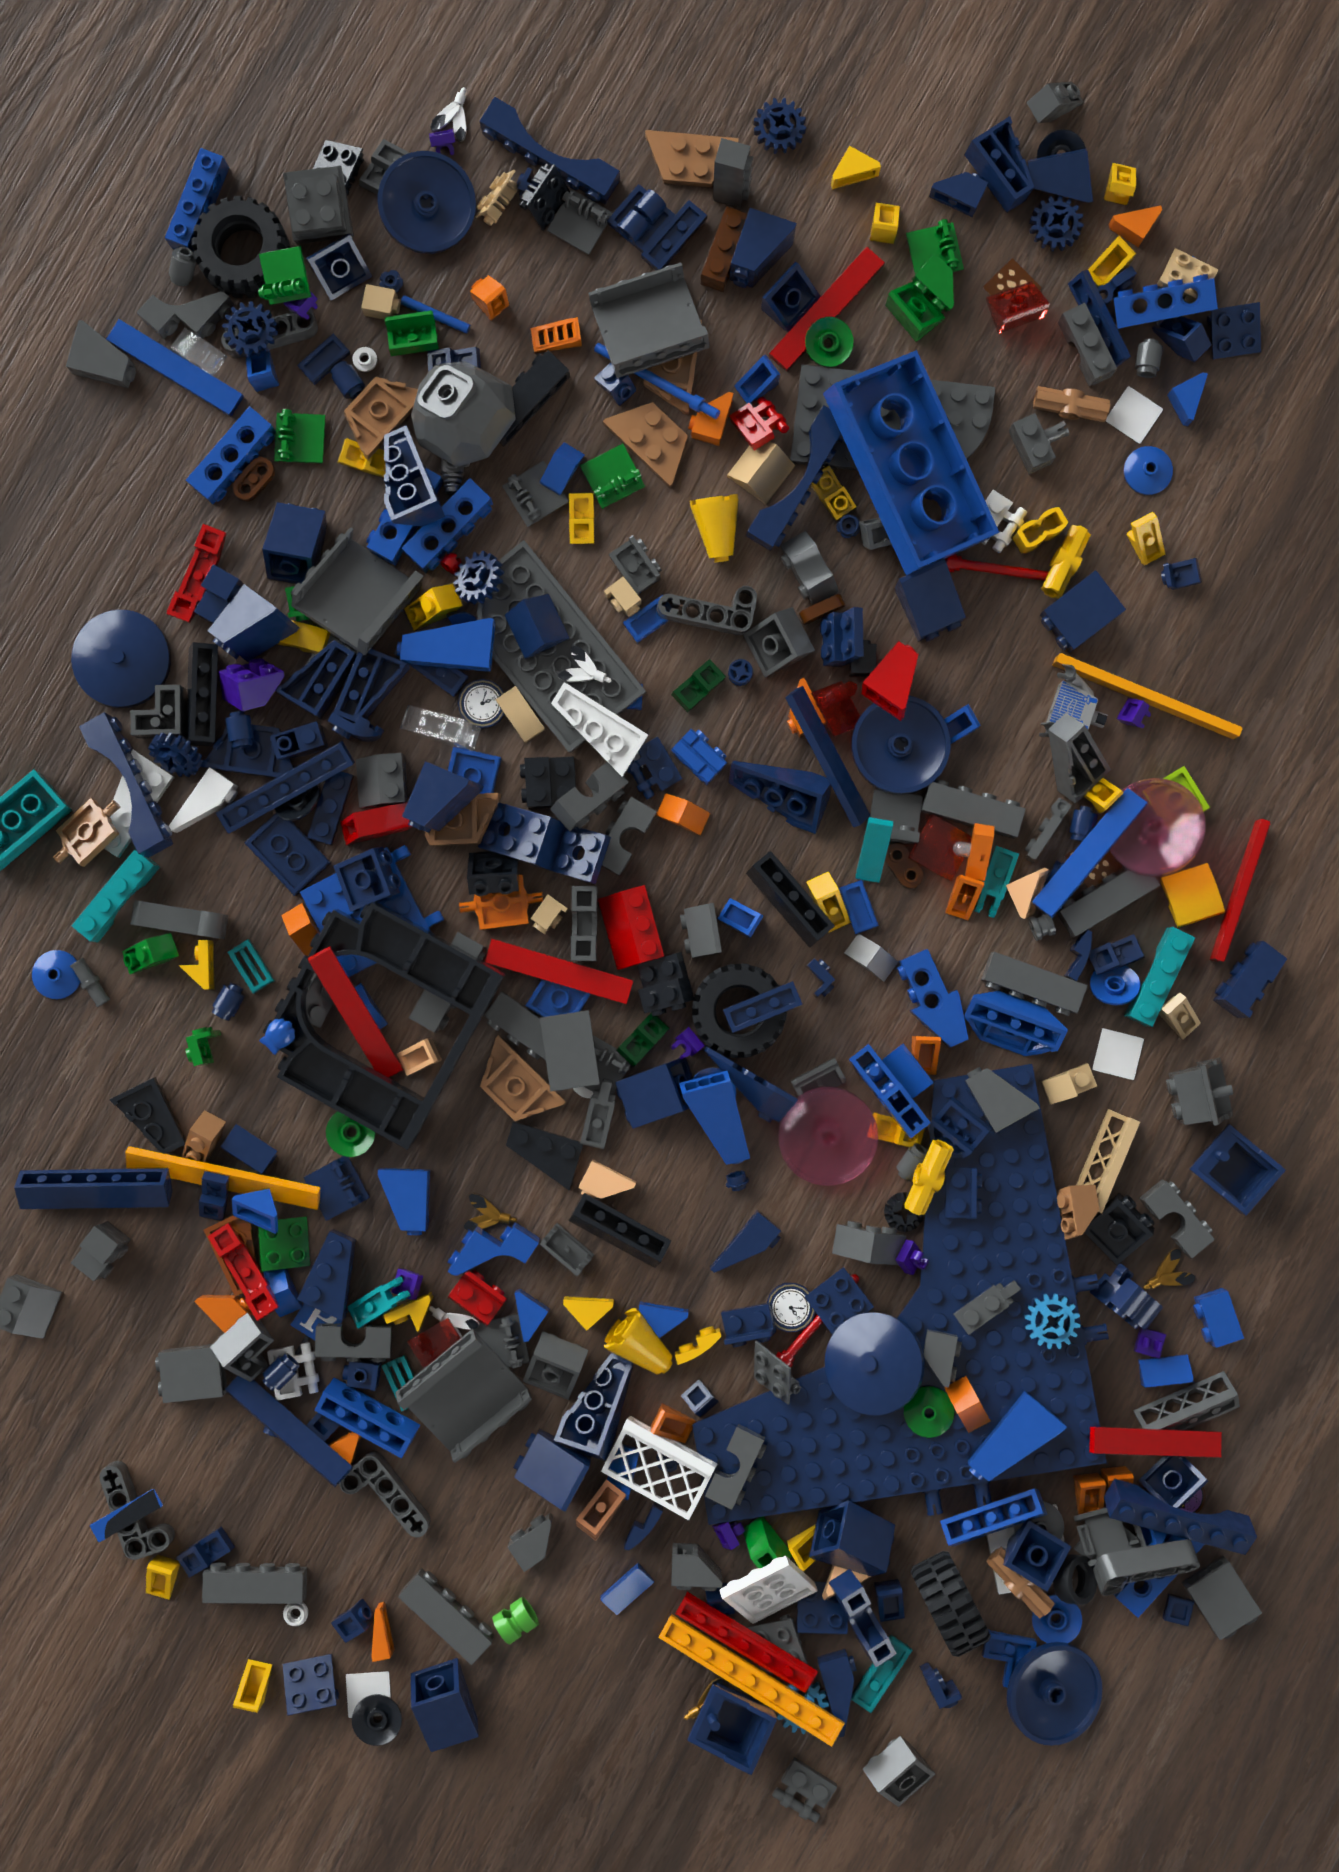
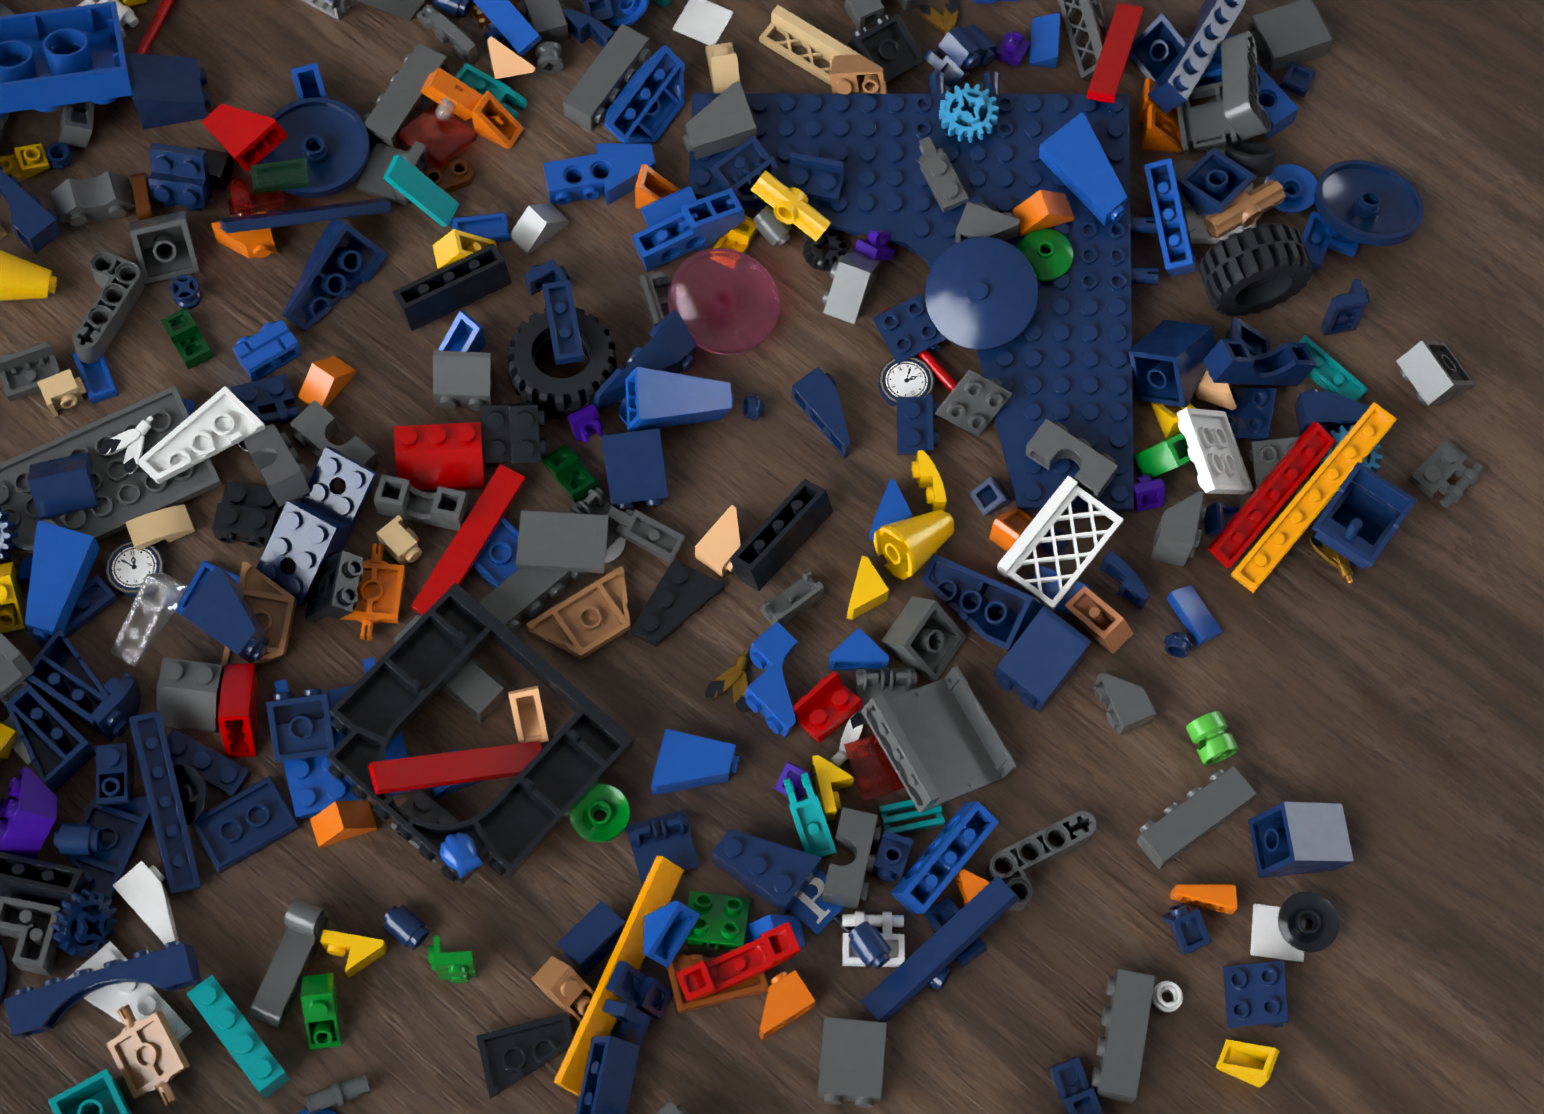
camera: 90 degrees left, 20 degrees down
(187, 1195) = (633, 1023): none -> dark blue bracket
(242, 1346) = (828, 980): dark grey brick -> none
(262, 984) = (375, 905): teal tile -> none
(596, 1579) = (1178, 644): none -> dark blue plate
(861, 724) = (280, 175): none -> clear green tile

